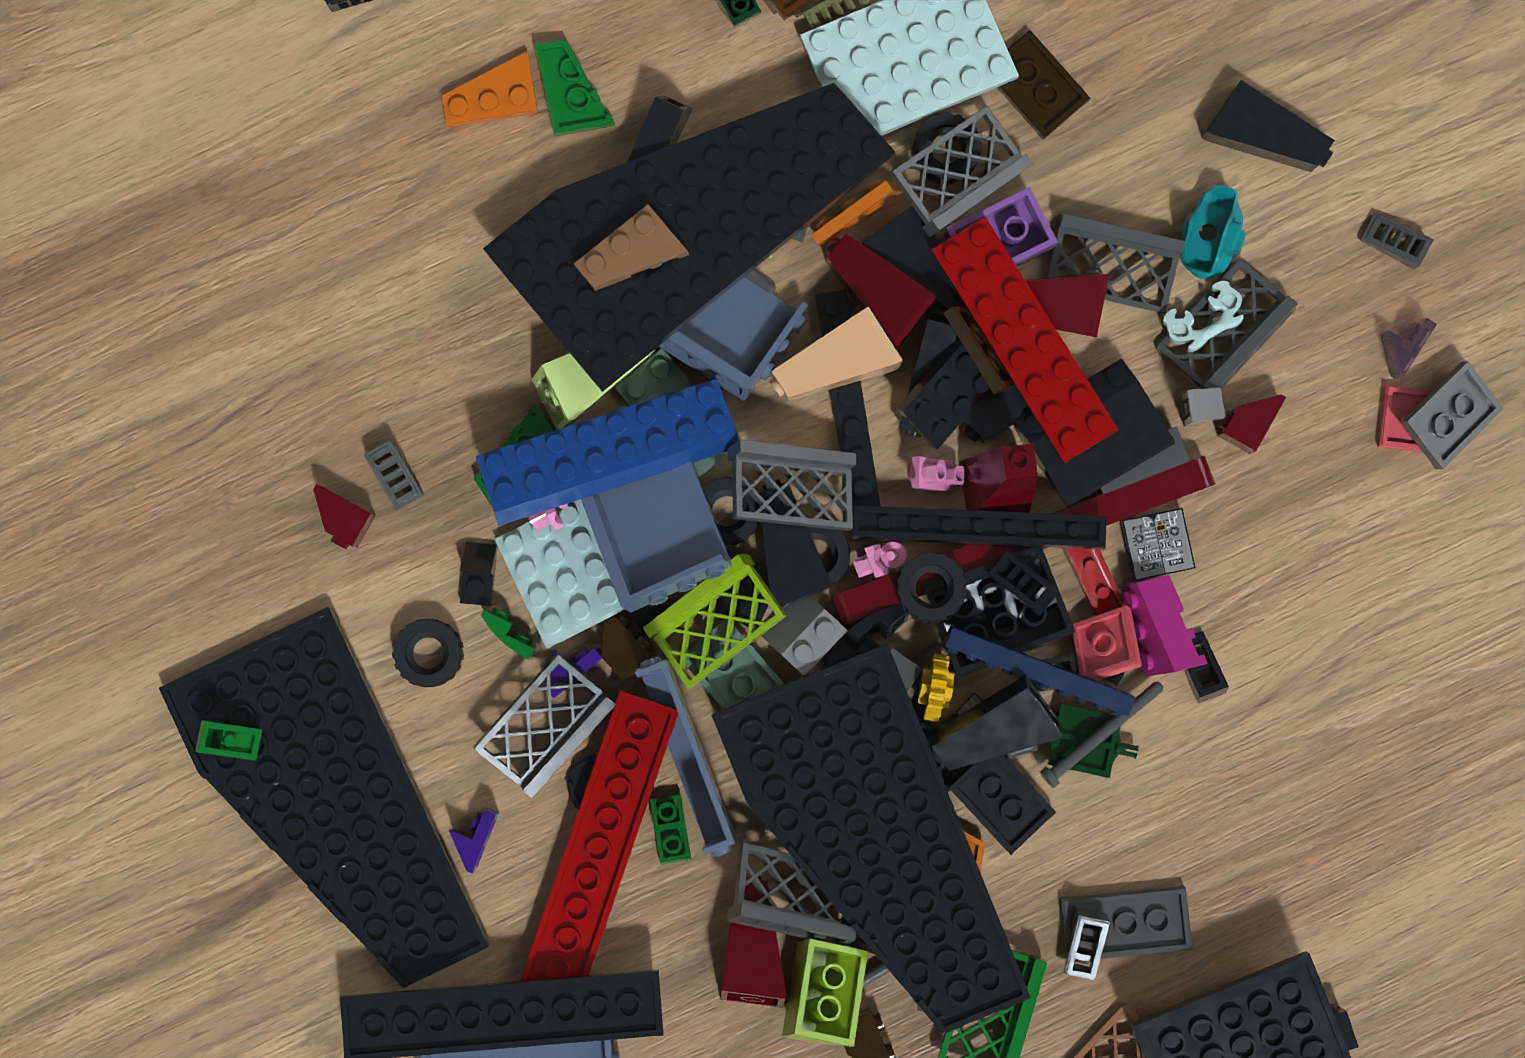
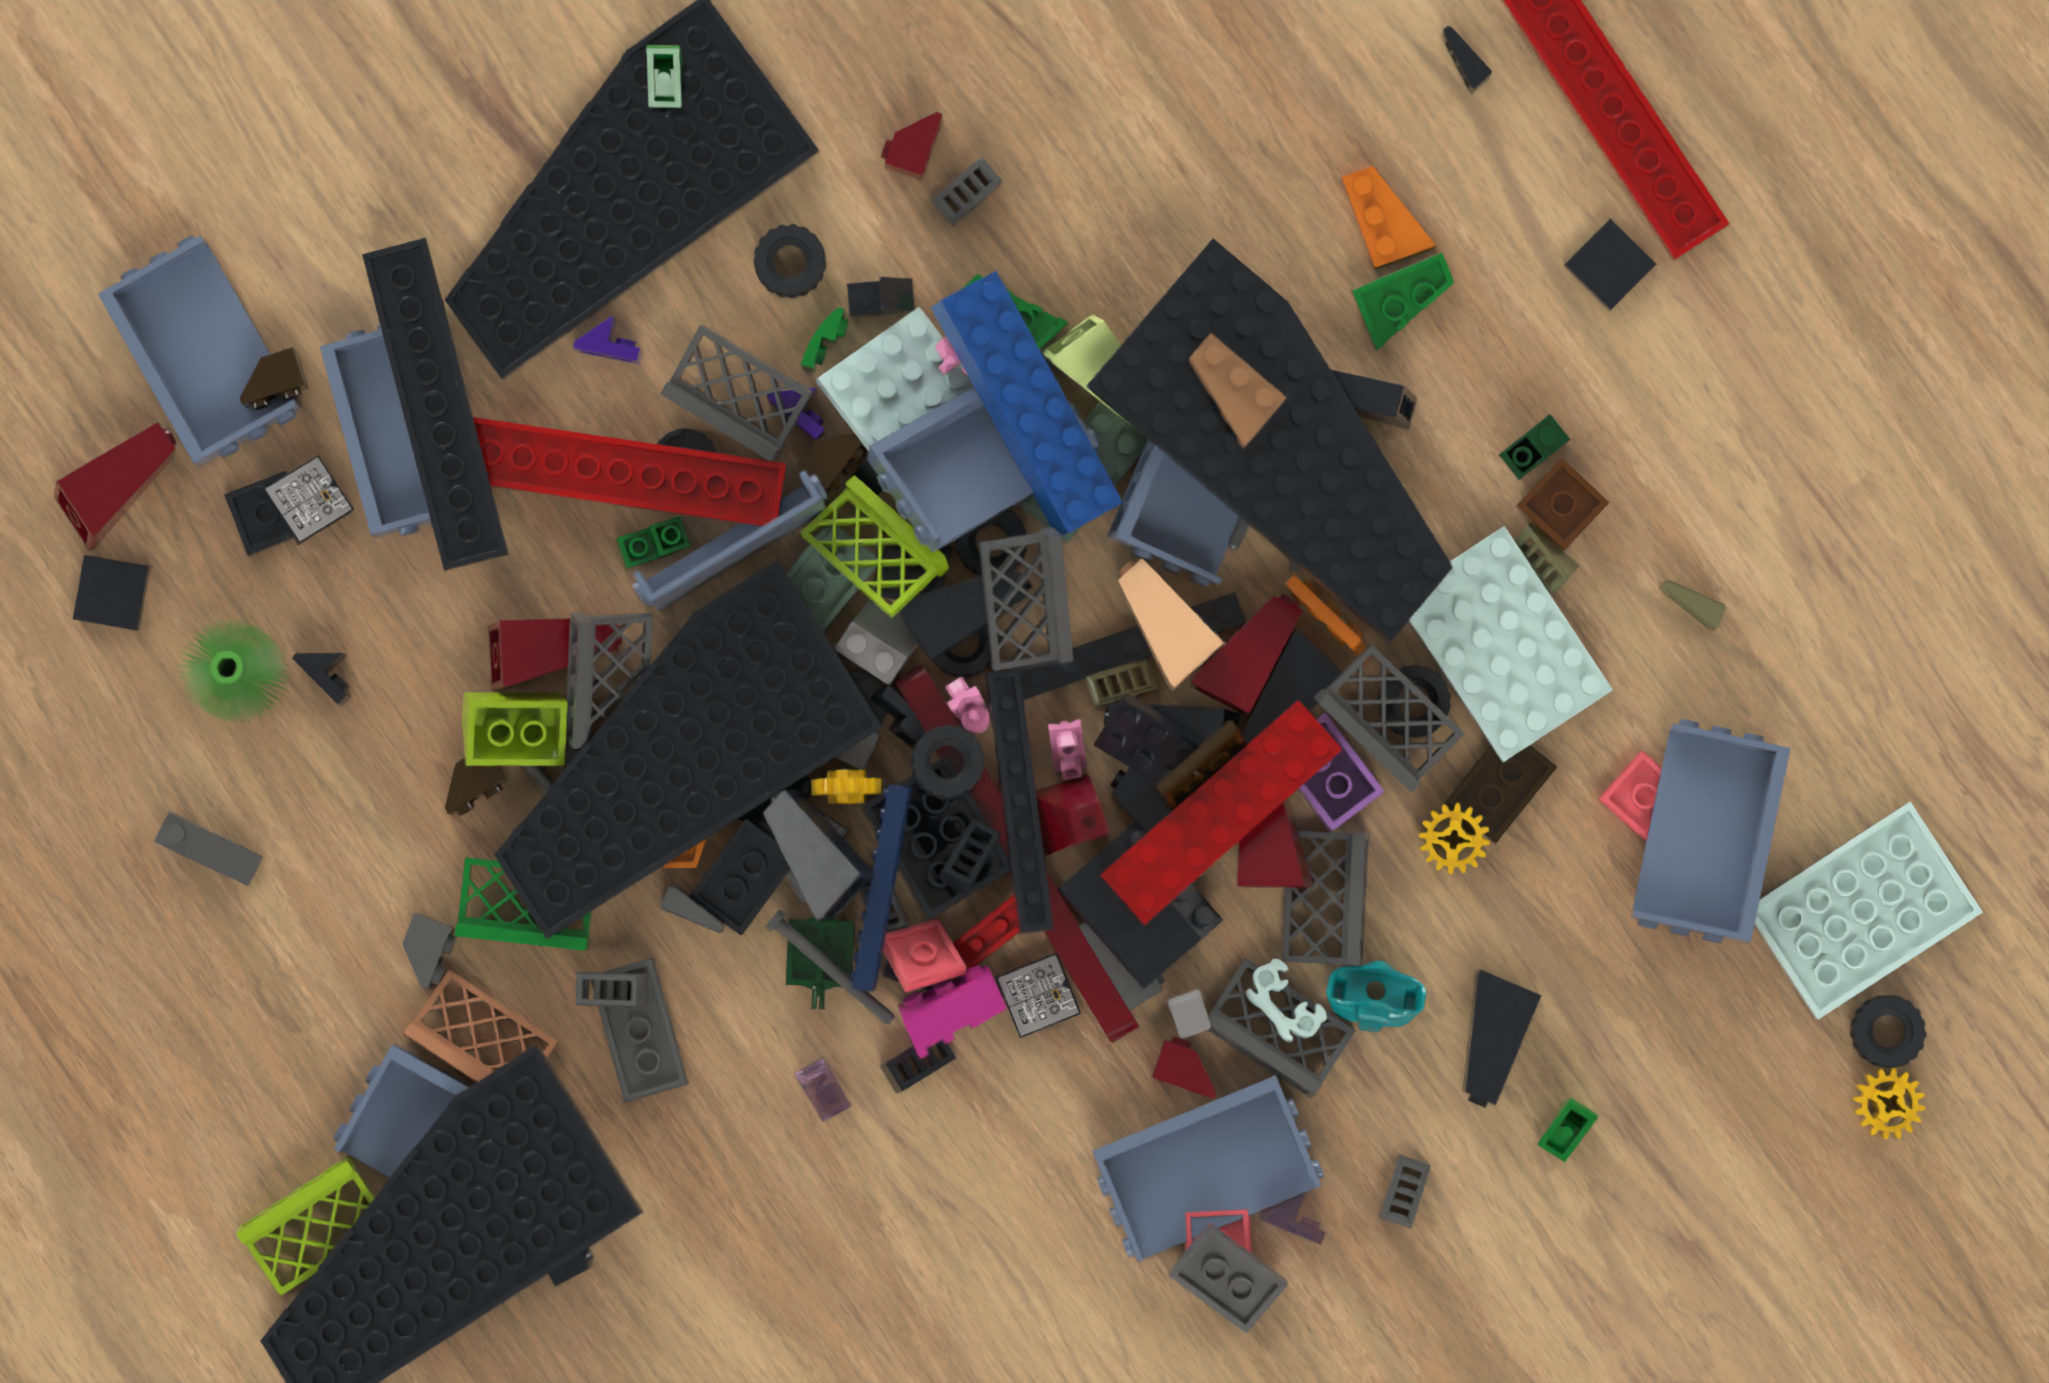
camera: 85 degrees right, 0 degrees up
(882, 440) = (1100, 702): none -> olive slope
(1017, 864) = (682, 905): none -> dark grey slope
(1093, 138) = (1433, 836): none -> yellow gear
(1213, 760) = (823, 1089): none -> slope
(1336, 417) = (1212, 1158): none -> sand blue panel
(1365, 80) = (1567, 1129): none -> green slope

